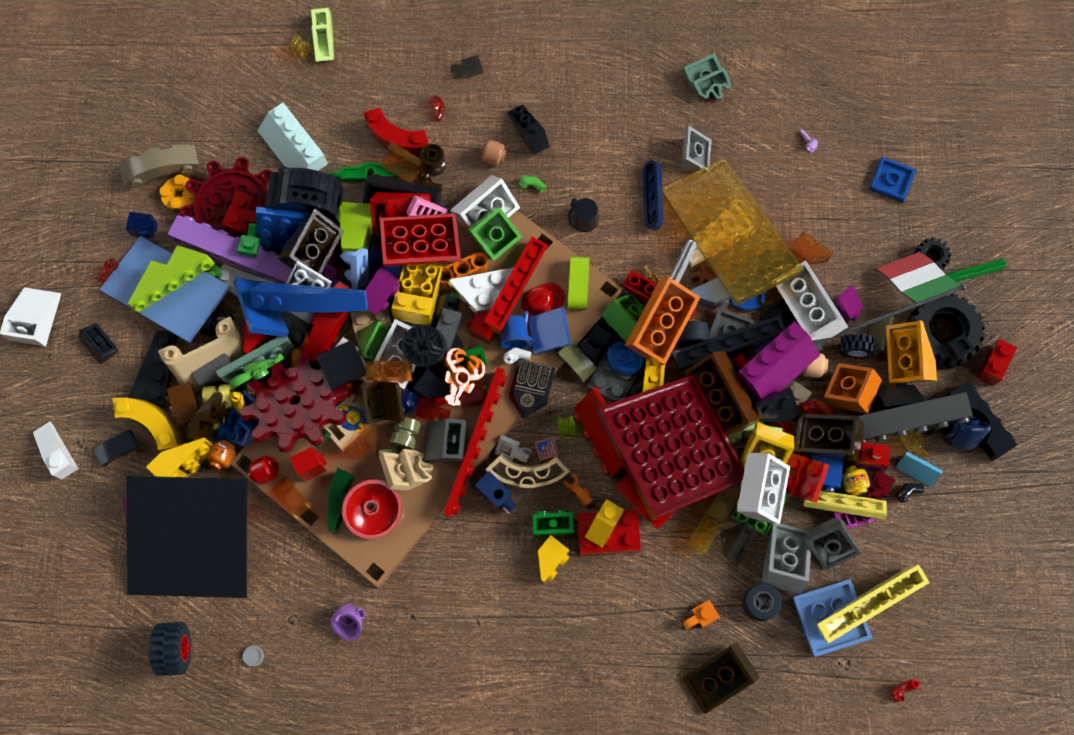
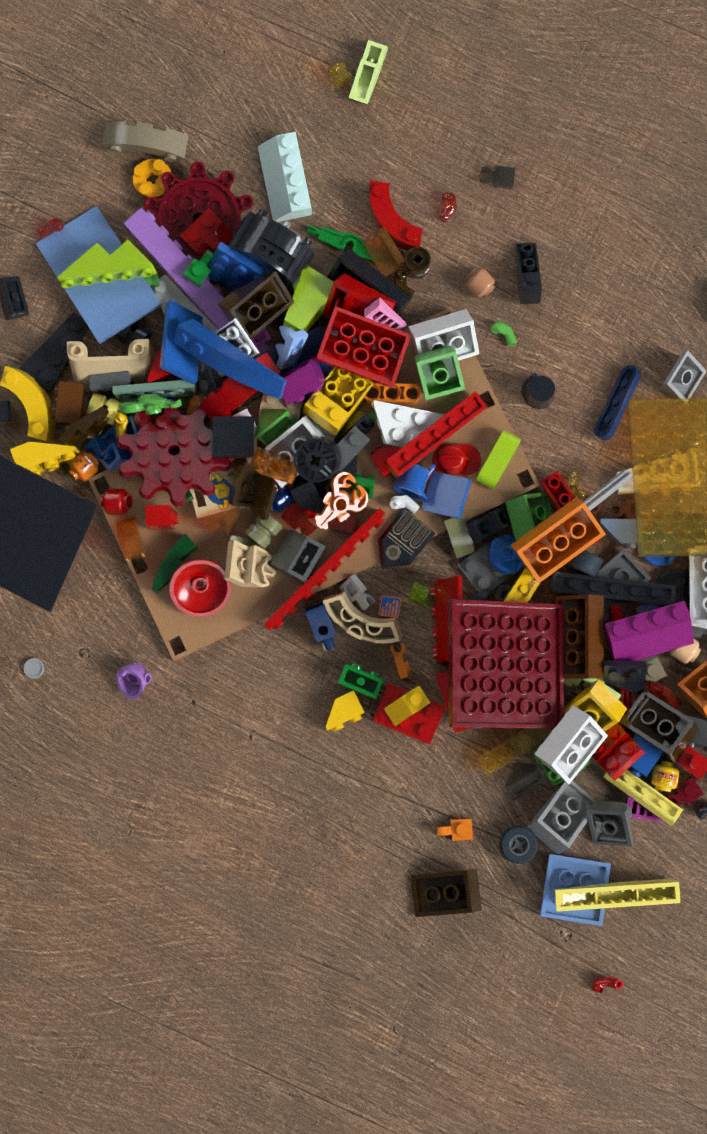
camera: 25 degrees right, 10 degrees up
(141, 225) = (102, 196): clear blue brick -> none

